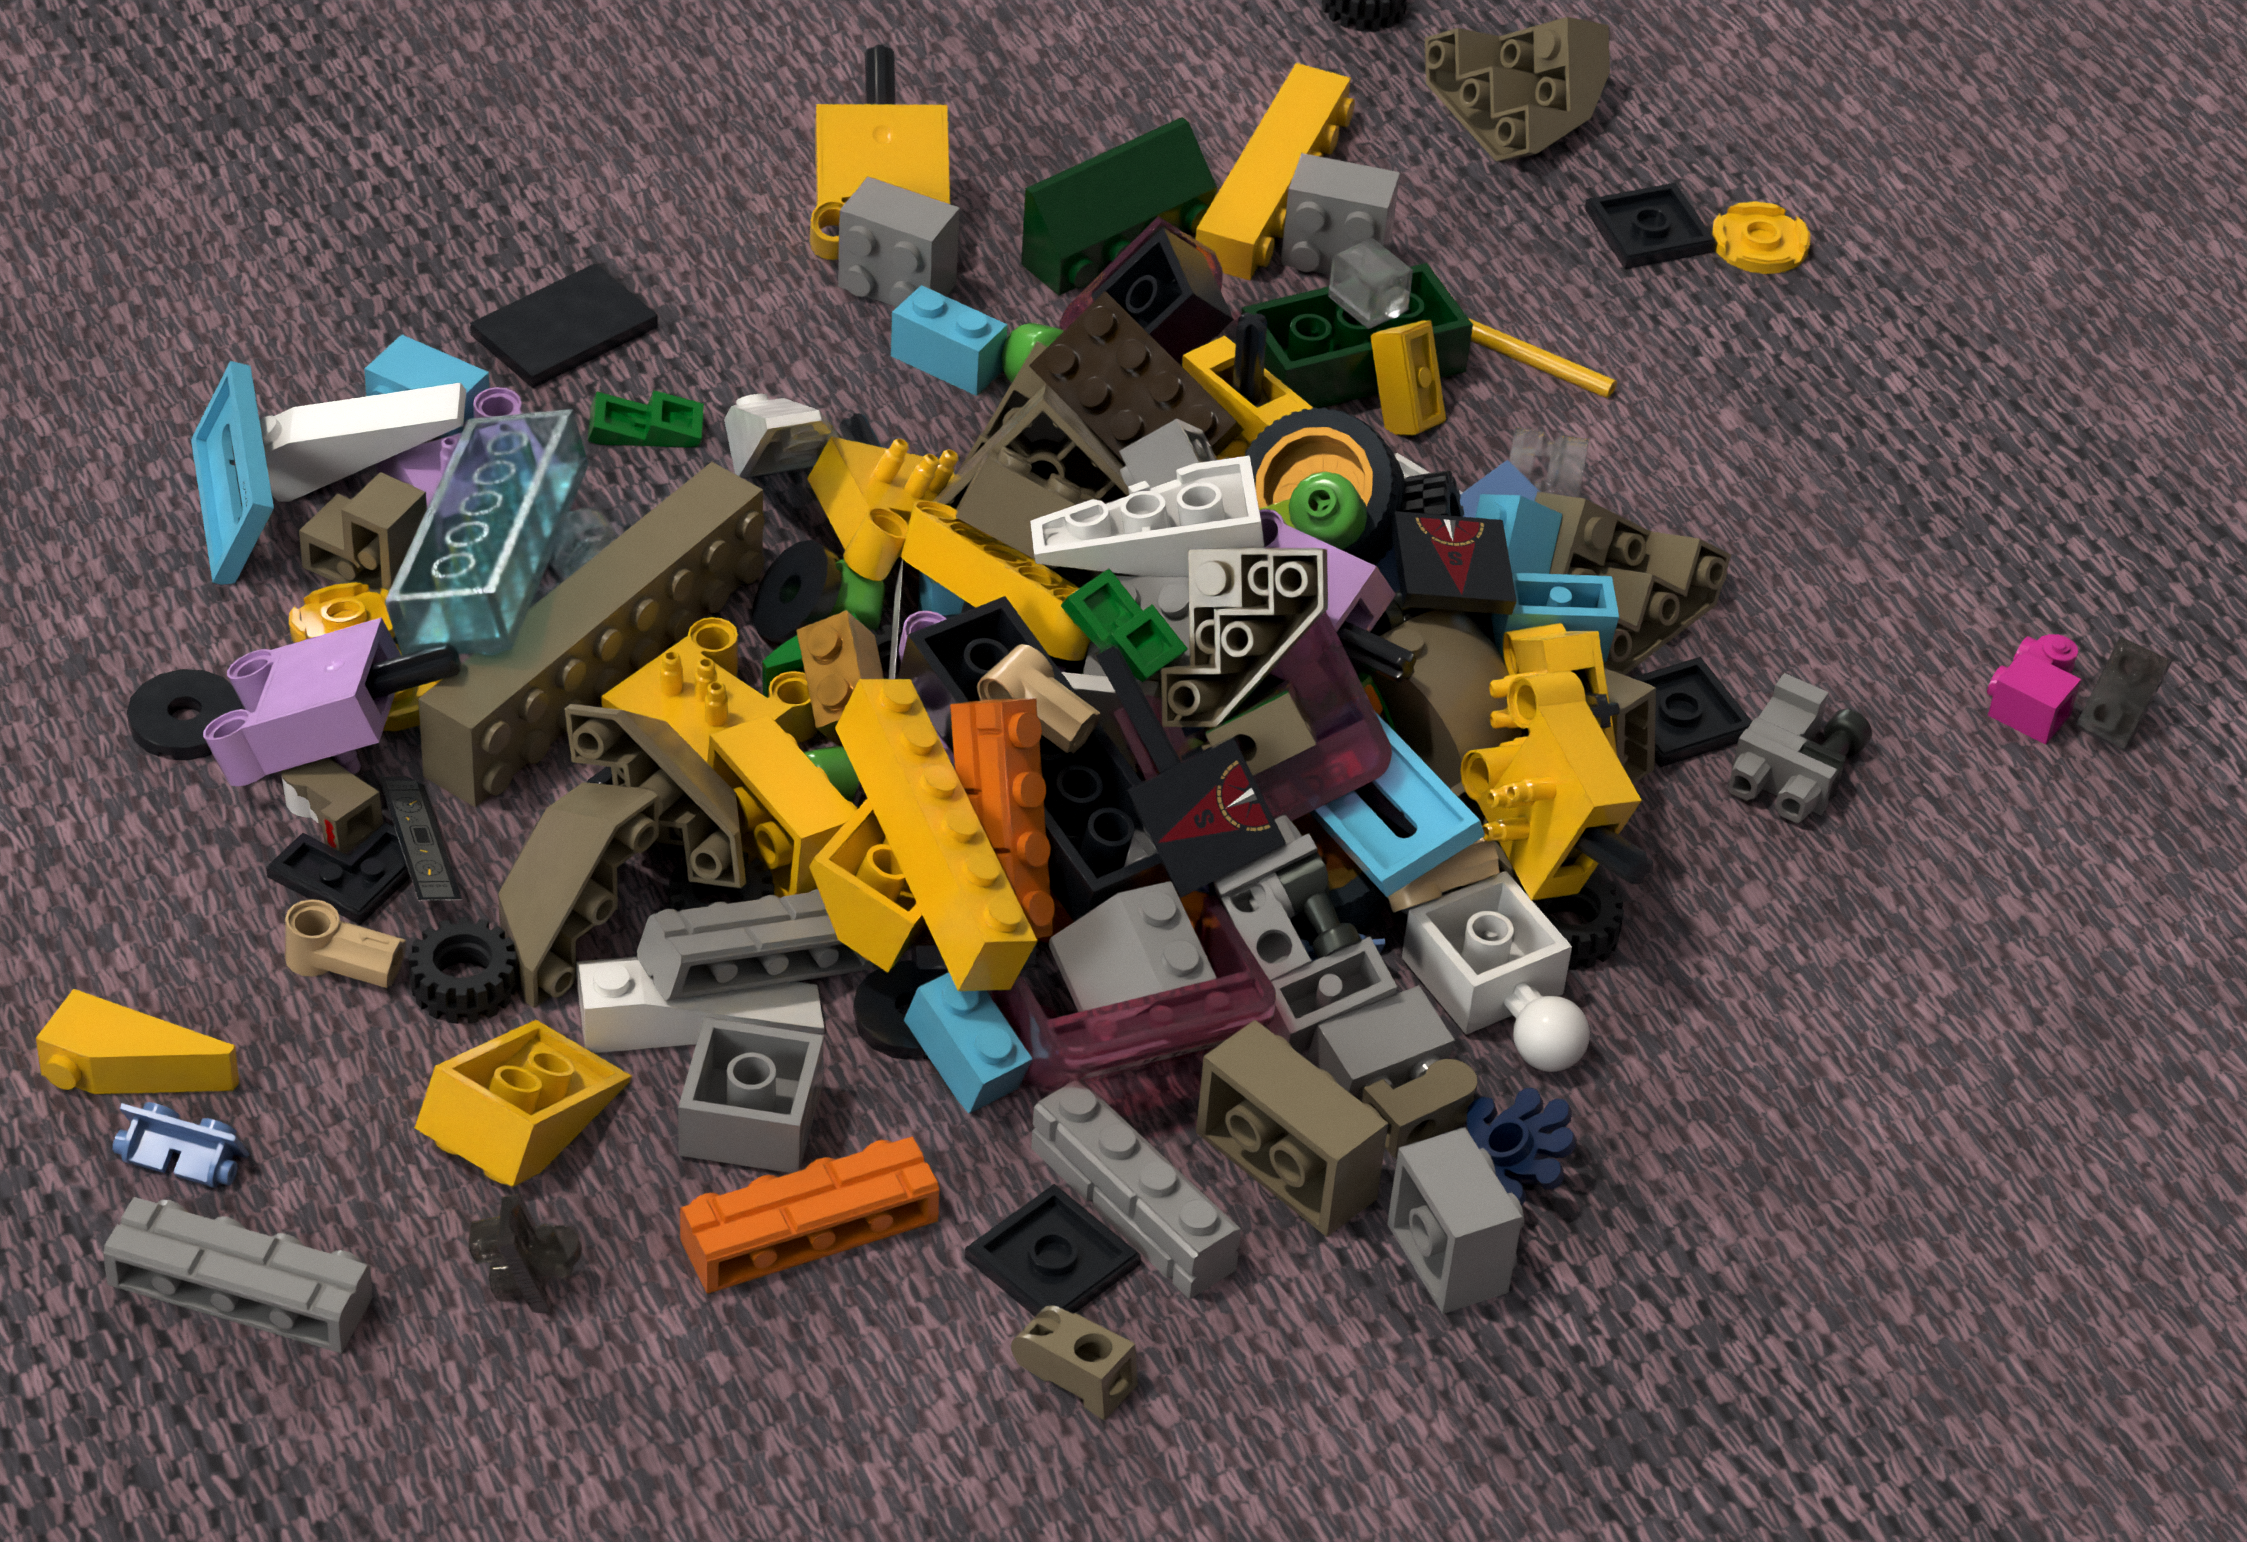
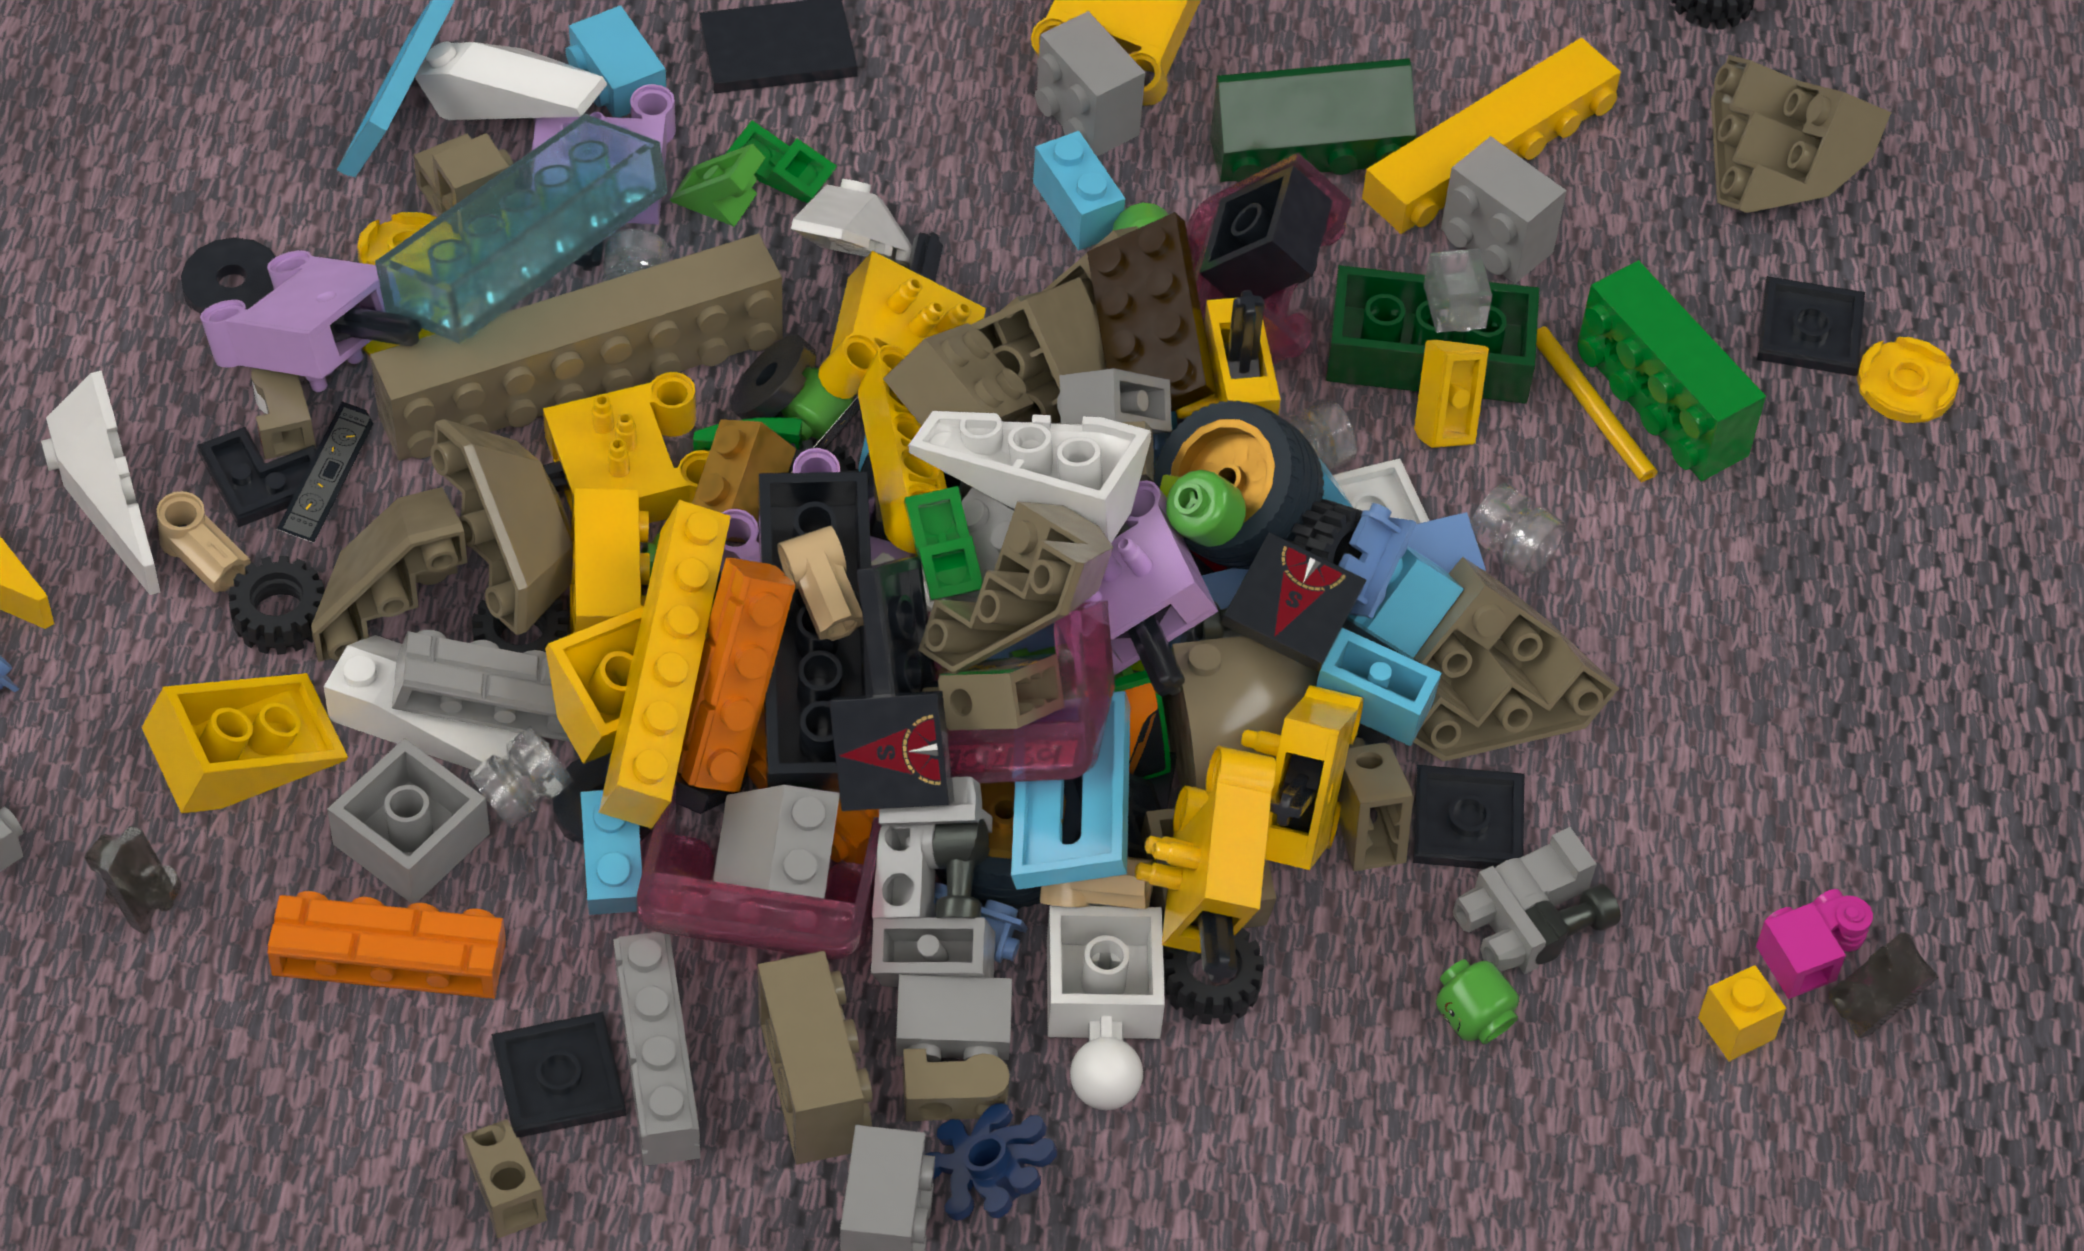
camera: 30 degrees right, 10 degrees up
(188, 921) = (97, 475): none -> white wedge
(616, 450) = (721, 185): none -> bright green slope
(833, 1006) = (521, 777): none -> clear wheel
(1483, 492) = (1382, 545): none -> medium blue hinge
(1579, 291) = (1670, 371): none -> green brick
(1808, 845) = (1477, 1001): none -> bright green head
(2029, 762) = (1742, 1012): none -> yellow brick

